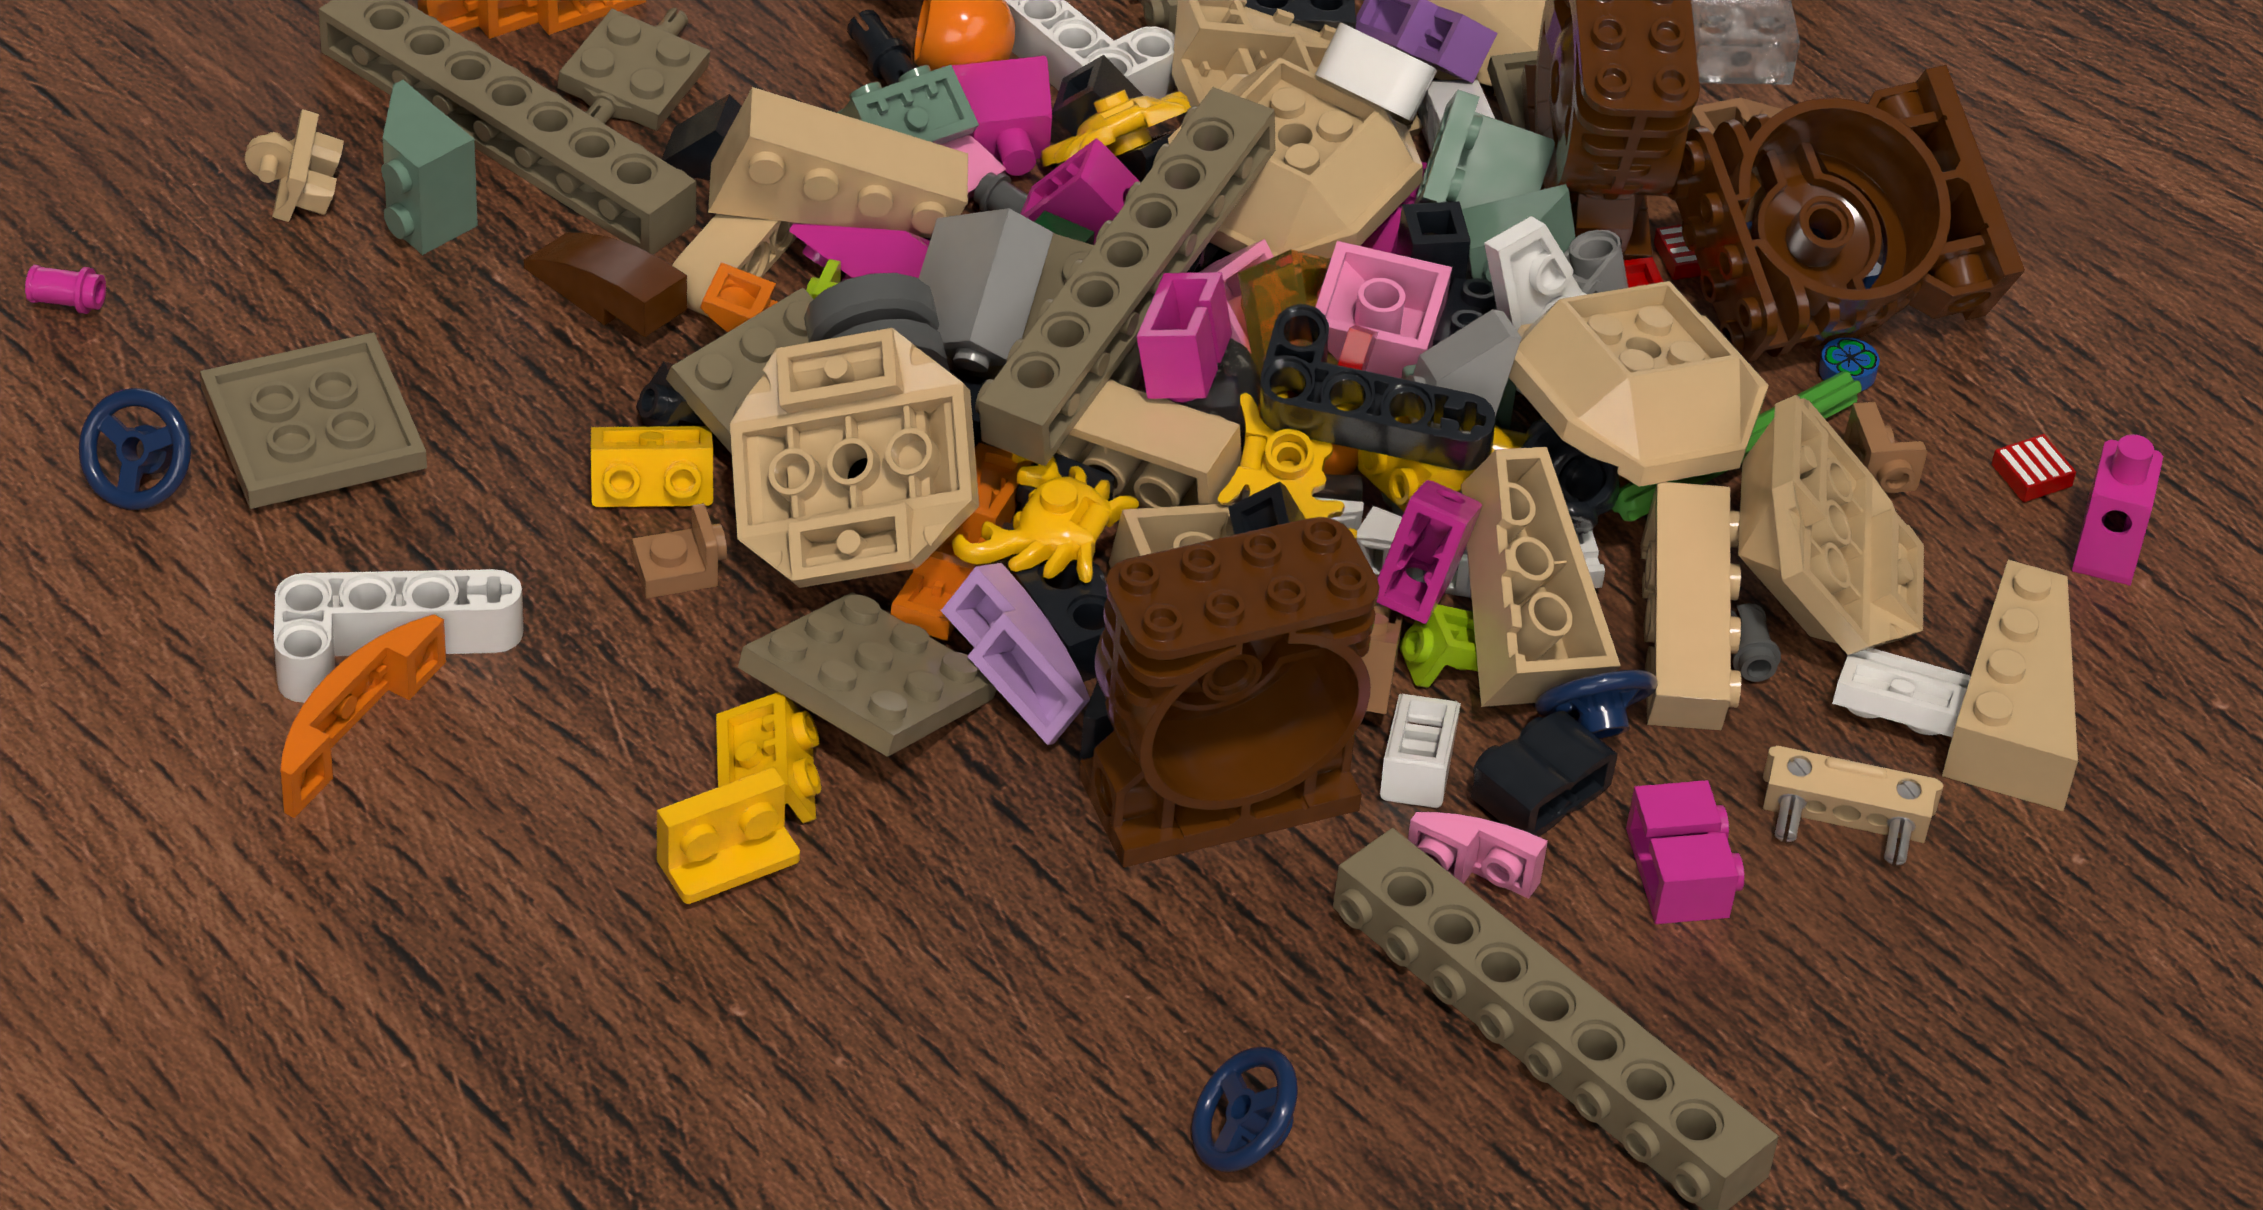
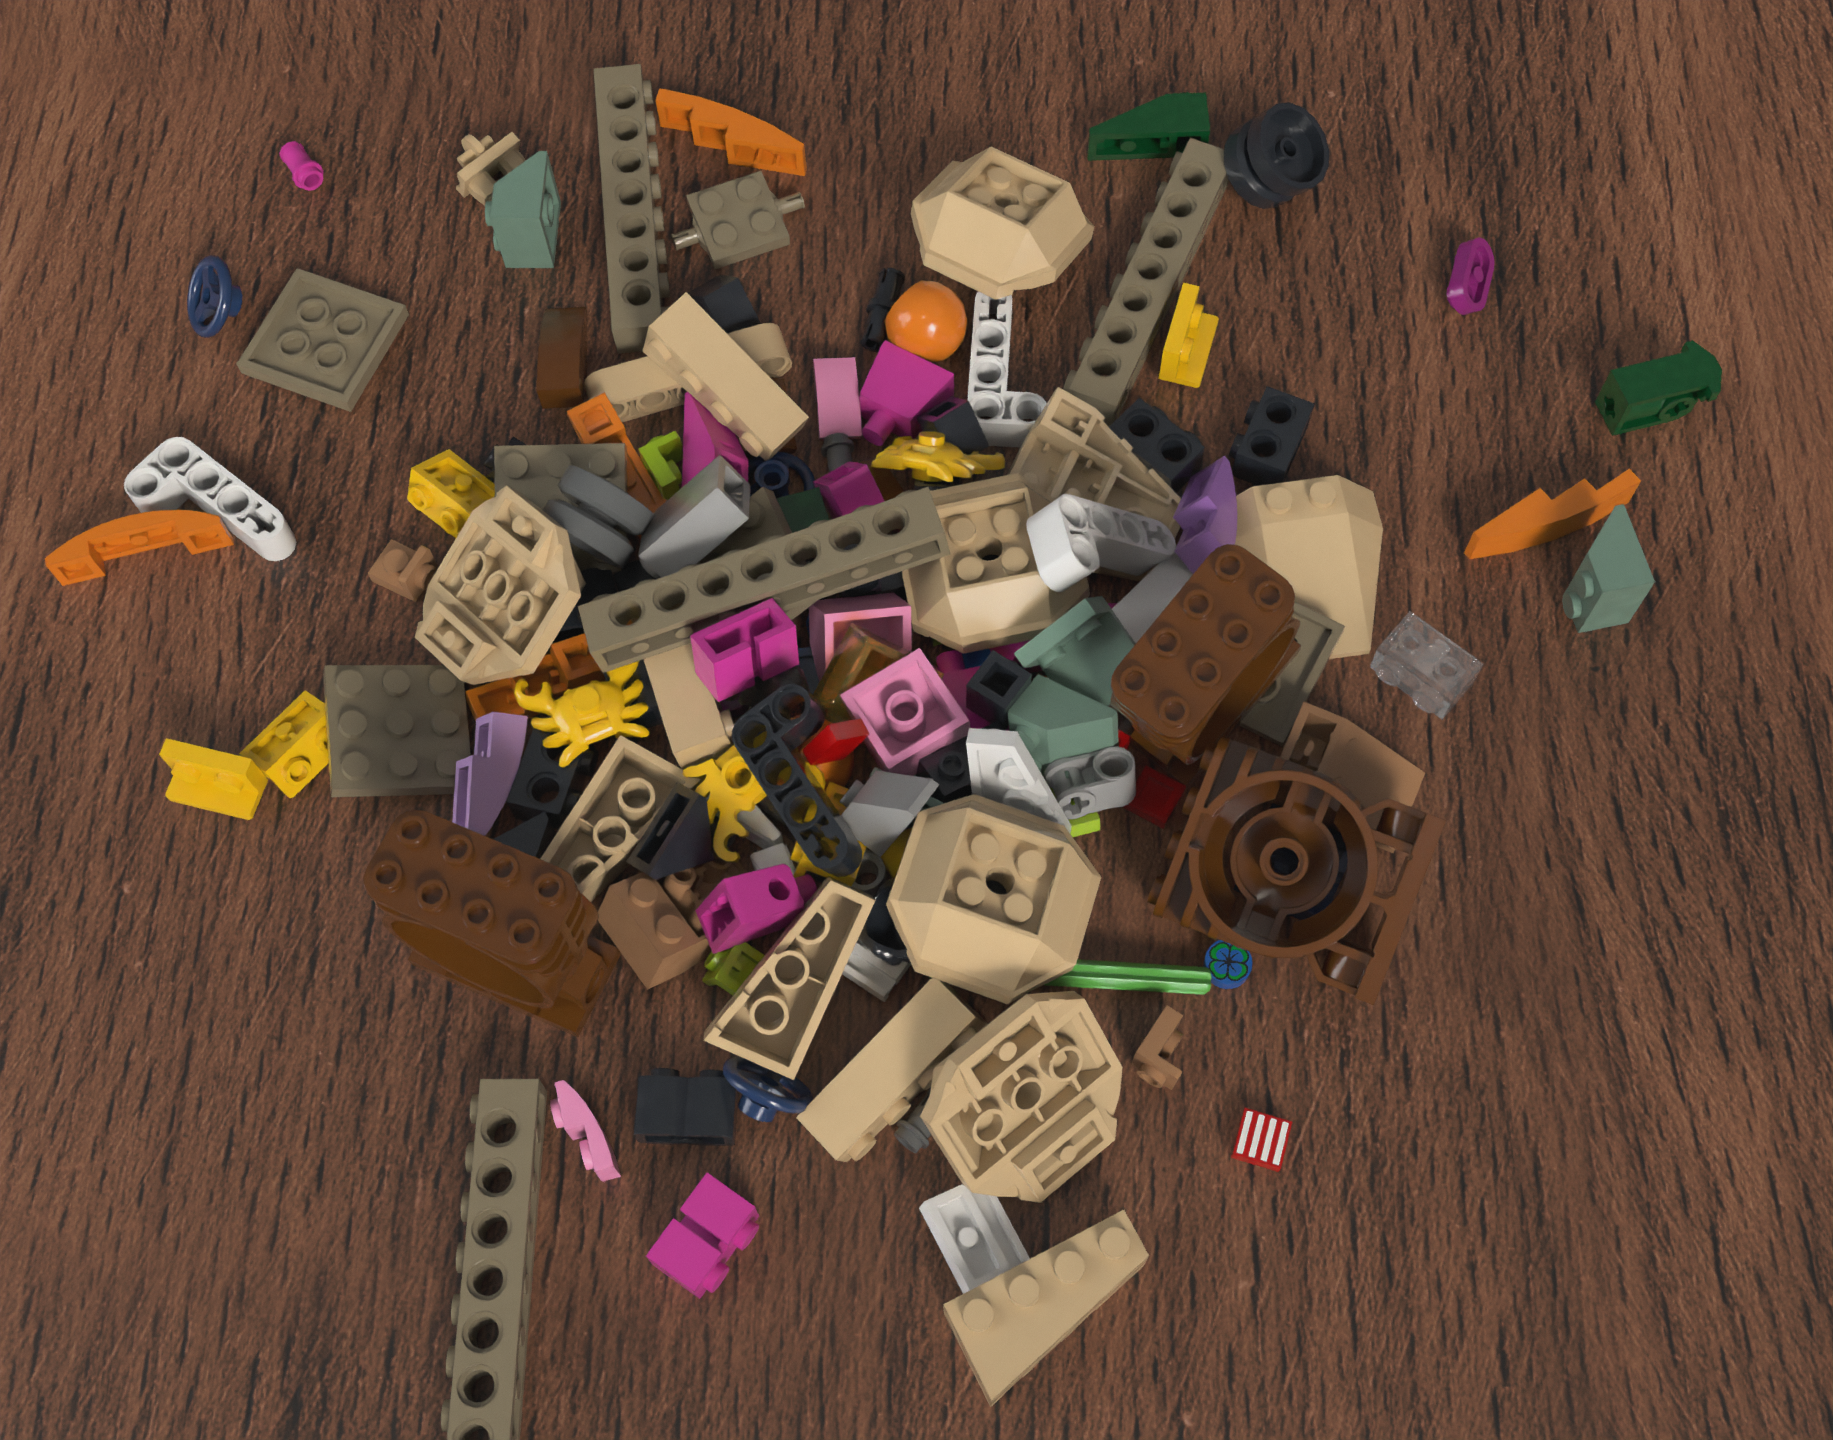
camera: 50 degrees right, 20 degrees up
(919, 105) = (819, 365): sand green bracket -> none
(1253, 1119) = (268, 1200): dark blue piece -> none
(1419, 755) = (642, 1049): white slope -> none
(1849, 796) = (852, 1284): tan piece -> none
(2126, 483) = (1260, 1226): dark pink torso -> none

